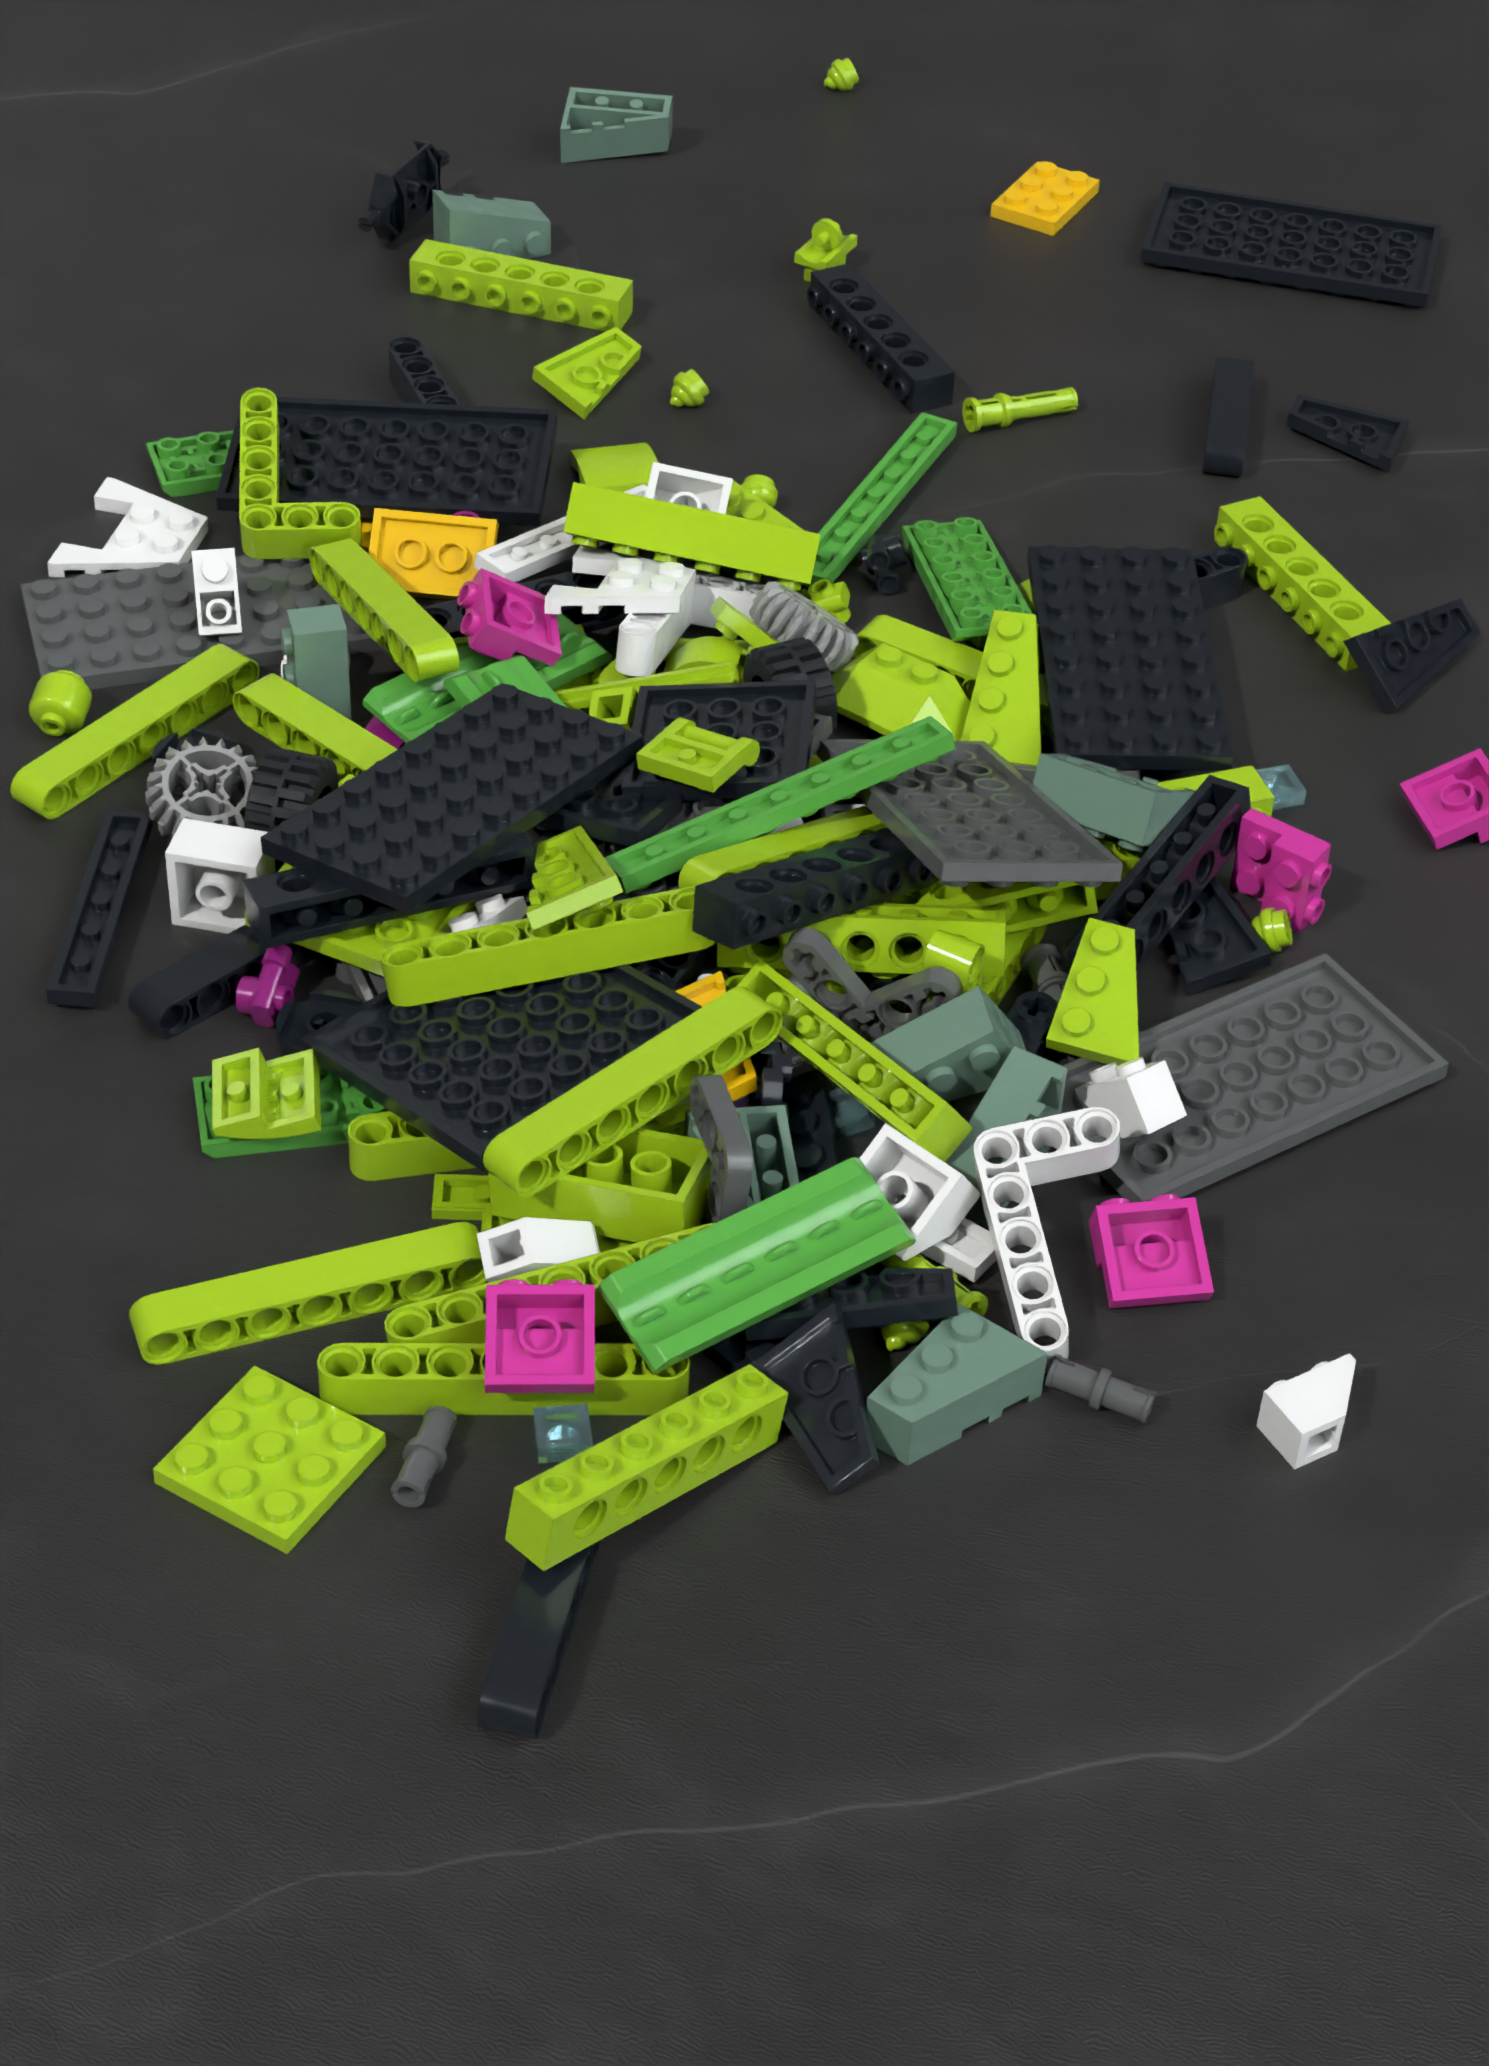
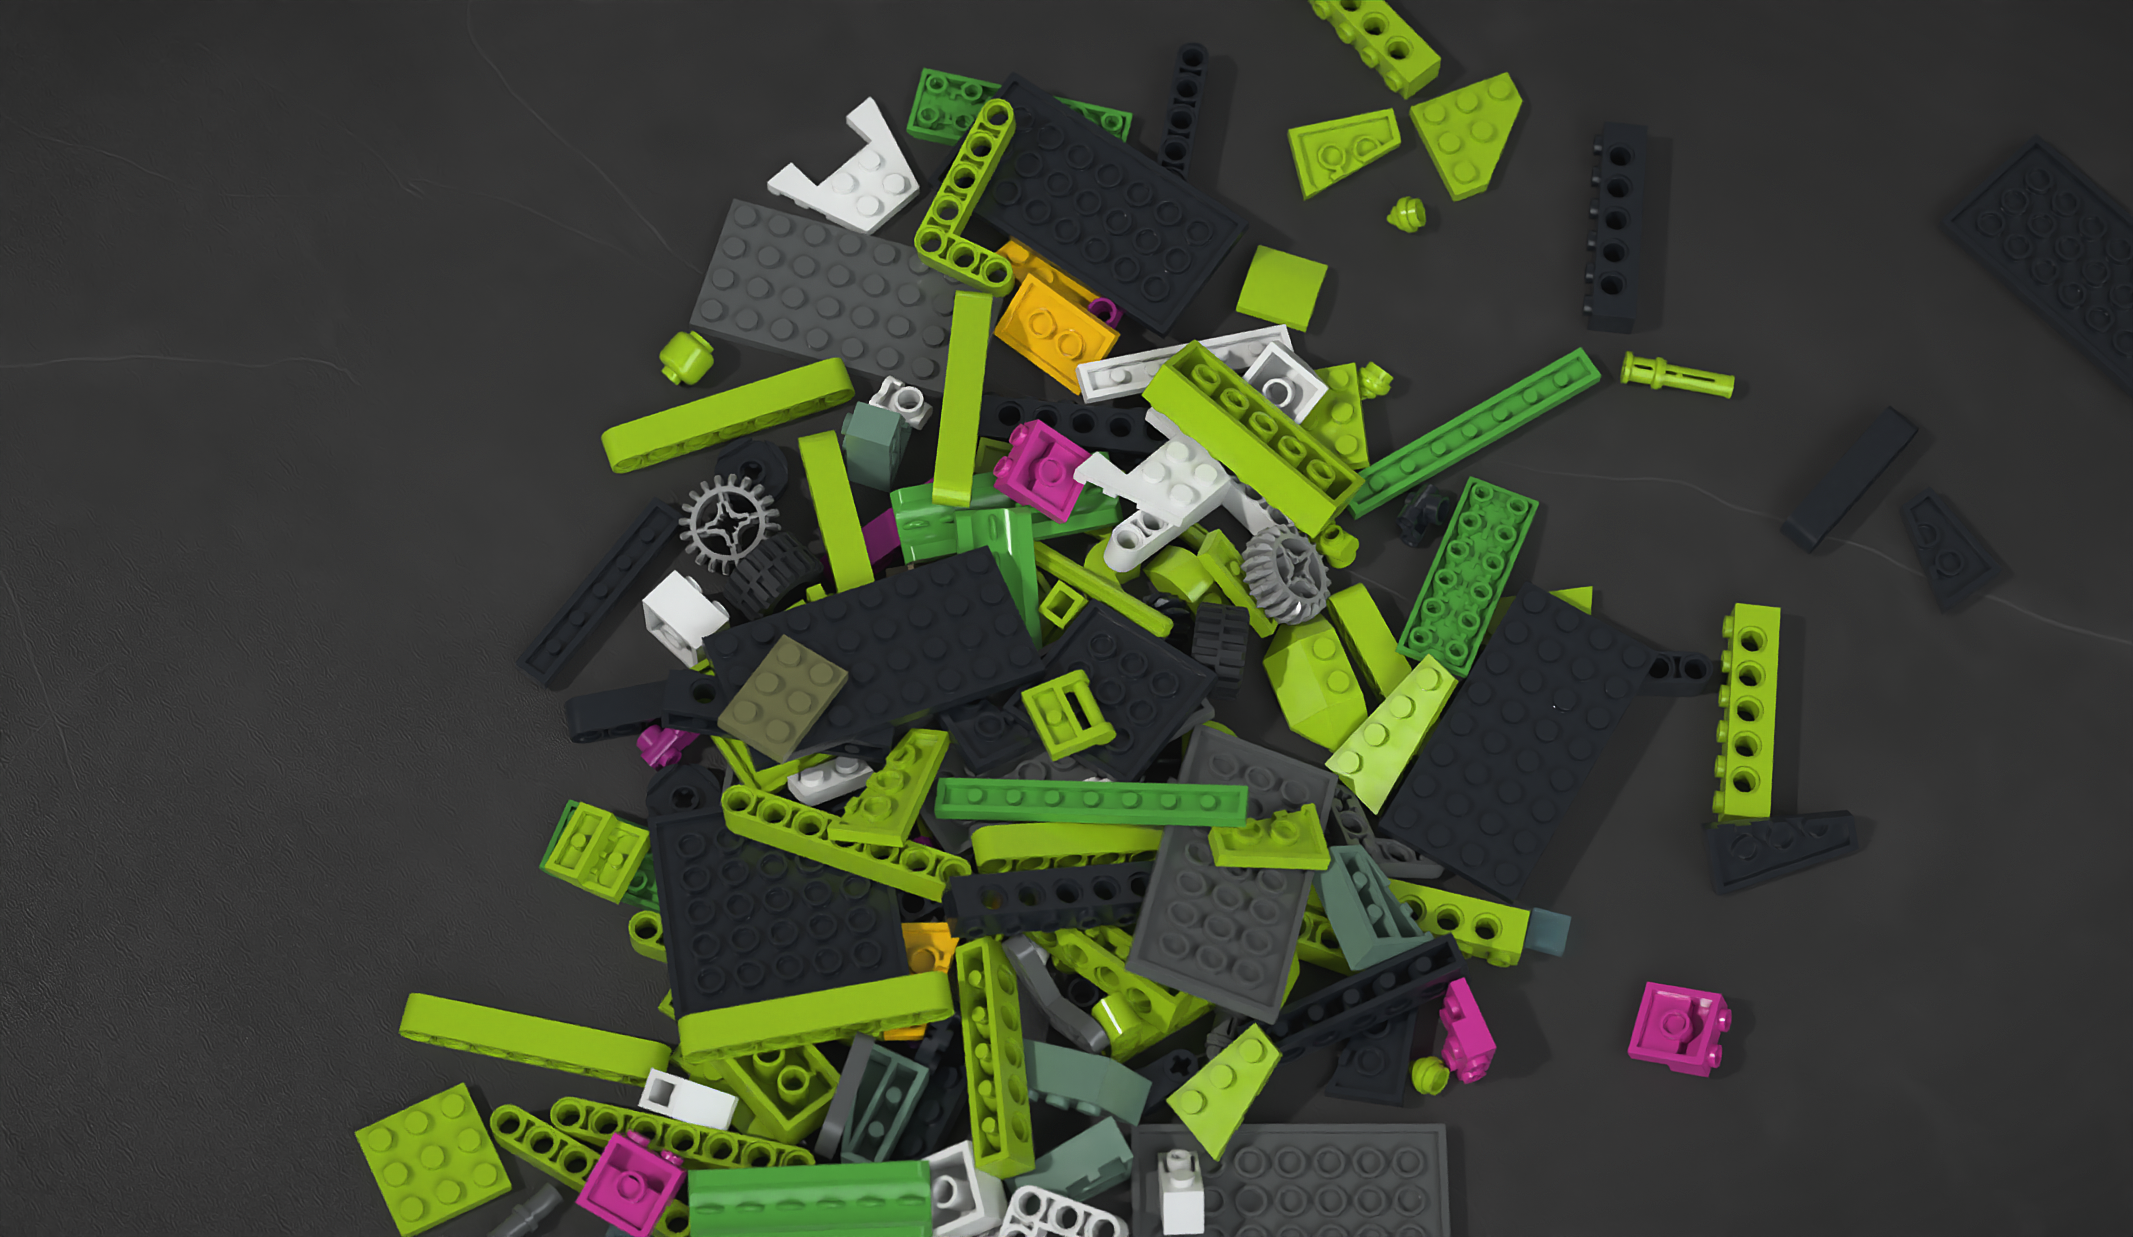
camera: 30 degrees right, 25 degrees up
(216, 592) = (858, 303): white slope -> none
(394, 834) = (783, 699): none -> olive plate
(693, 331) = (1468, 132): none -> lime plate
(825, 248) = (1648, 87): lime hips -> none
(984, 771) = (1275, 842): none -> lime wing
(1045, 198) = (1917, 94): yellow plate -> none

